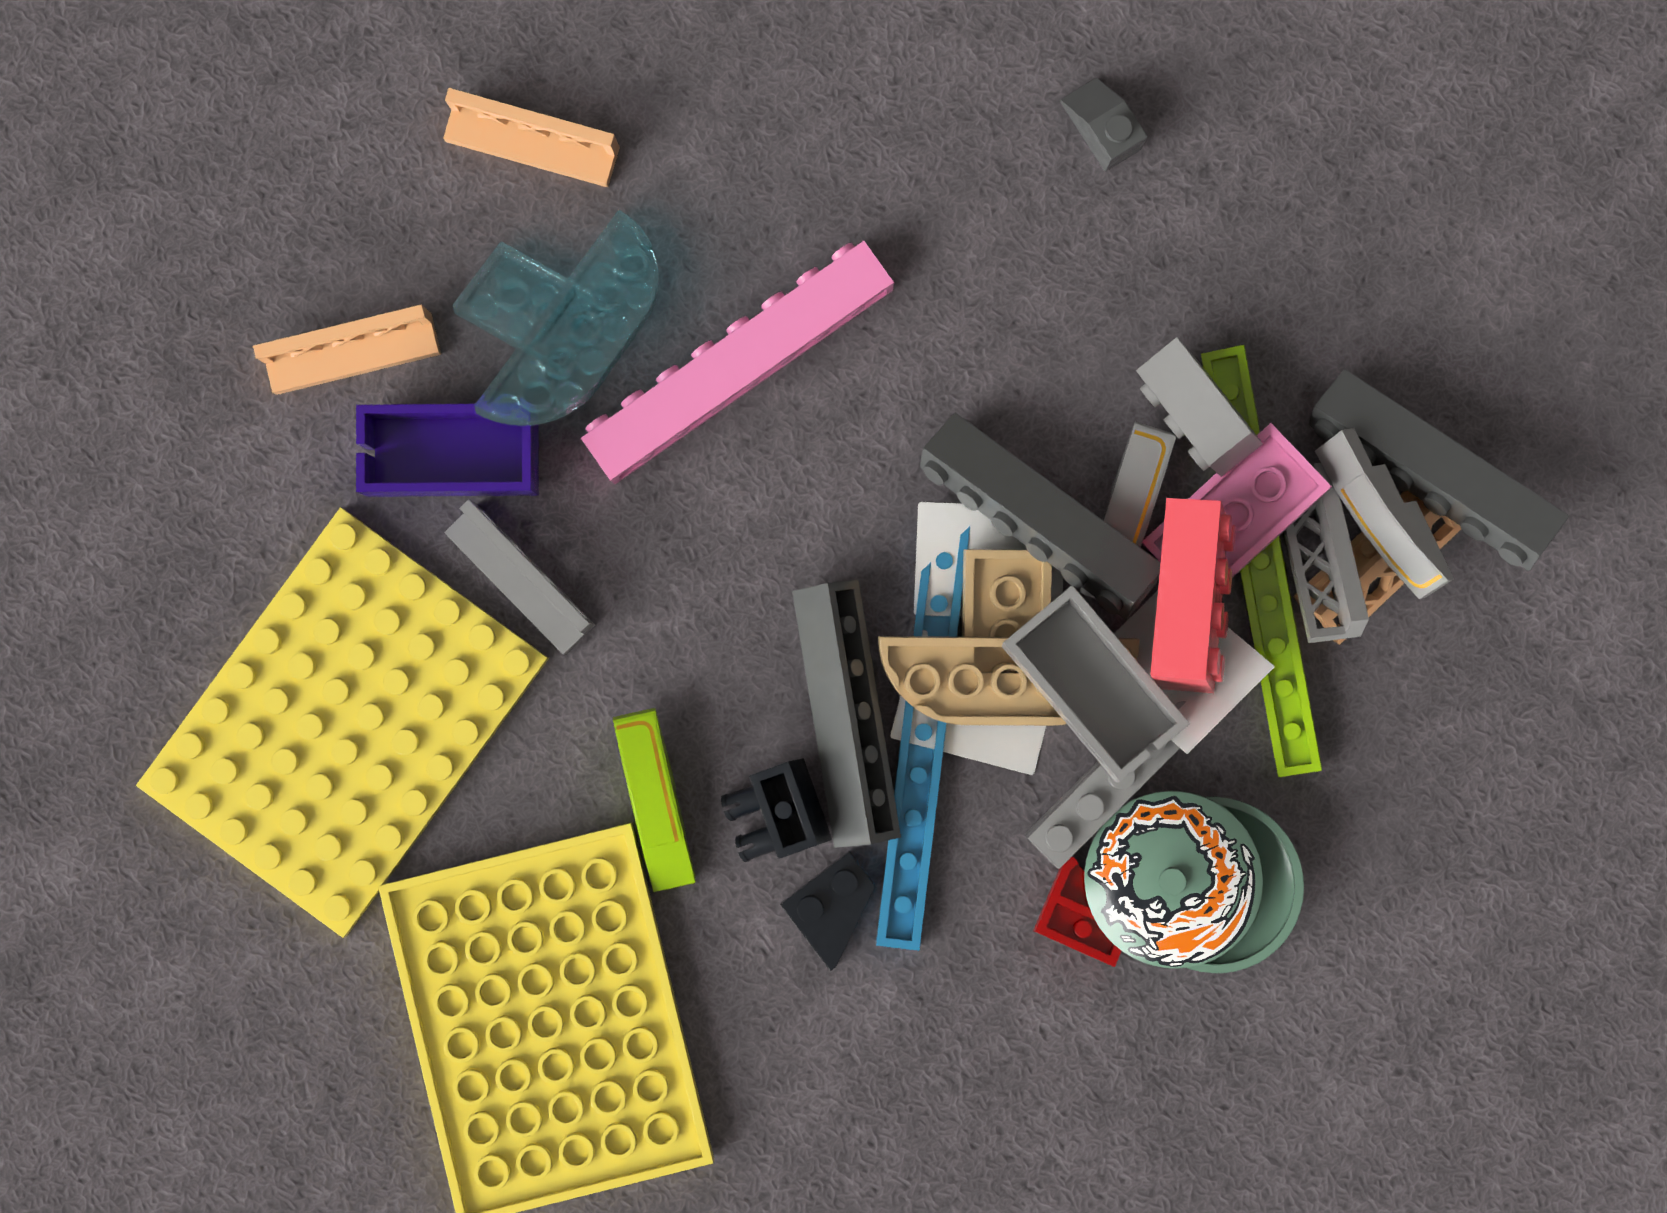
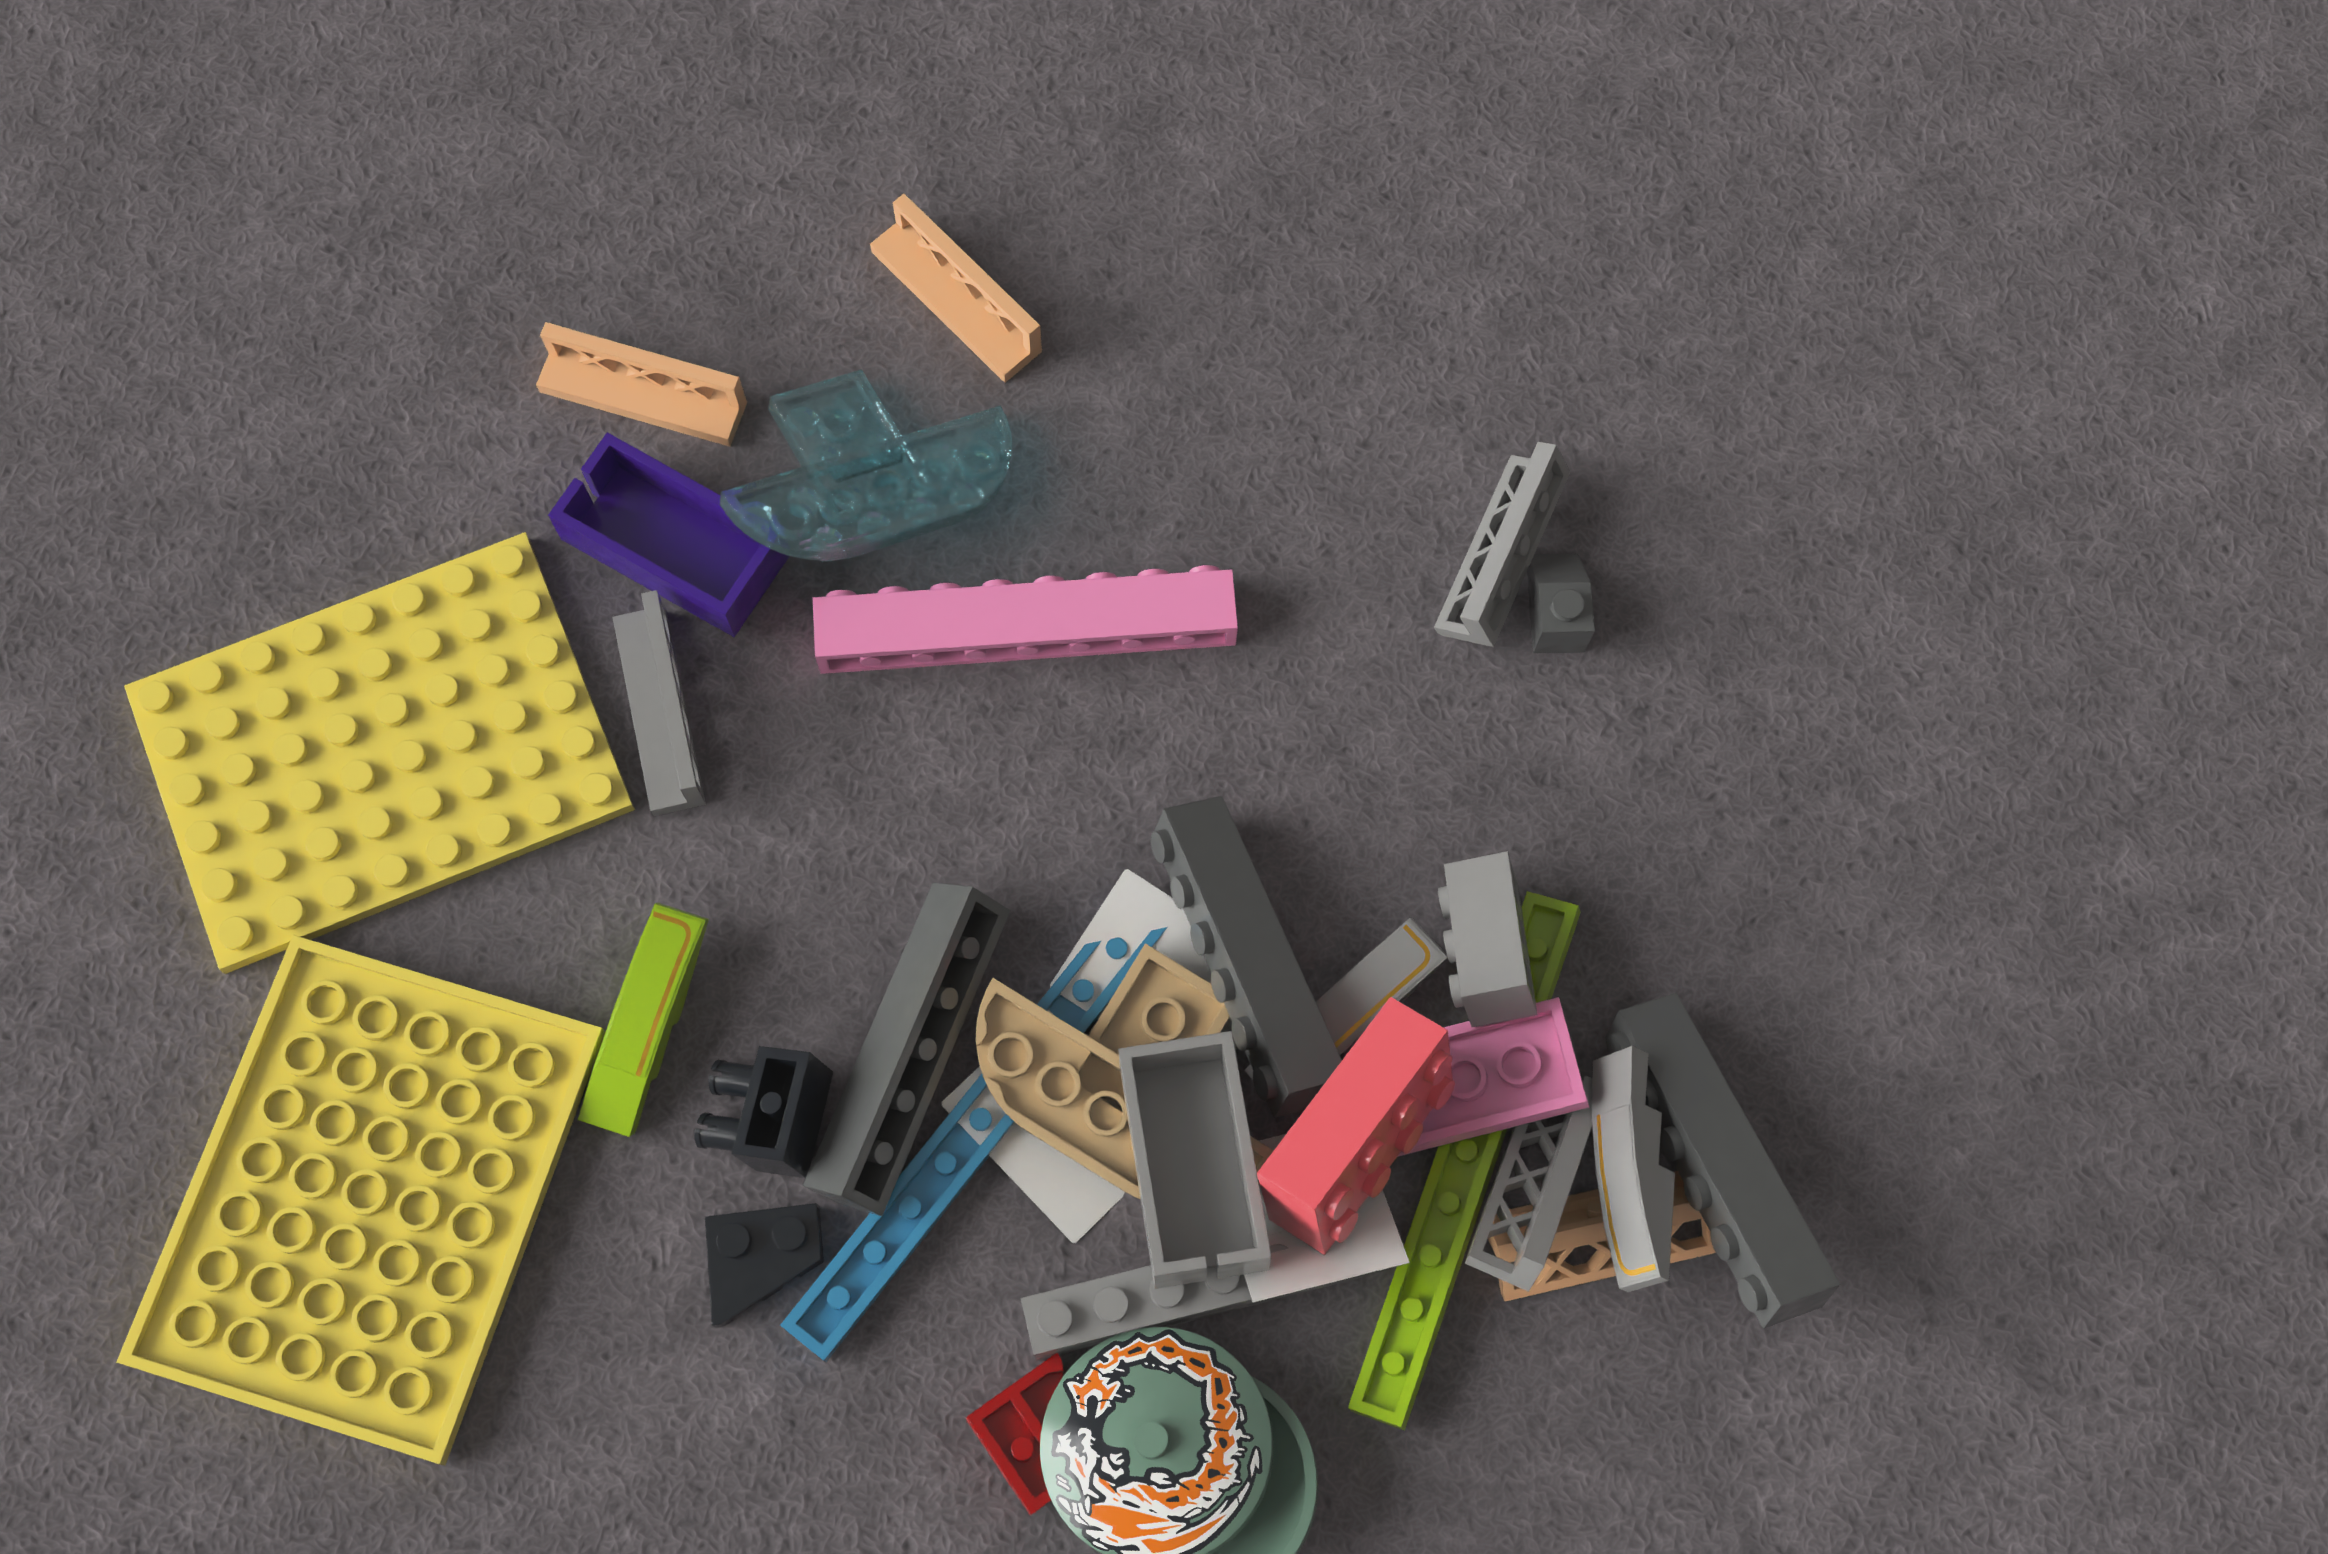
camera: 20 degrees right, 15 degrees down
(1051, 104) = (1511, 550): none -> light grey fence

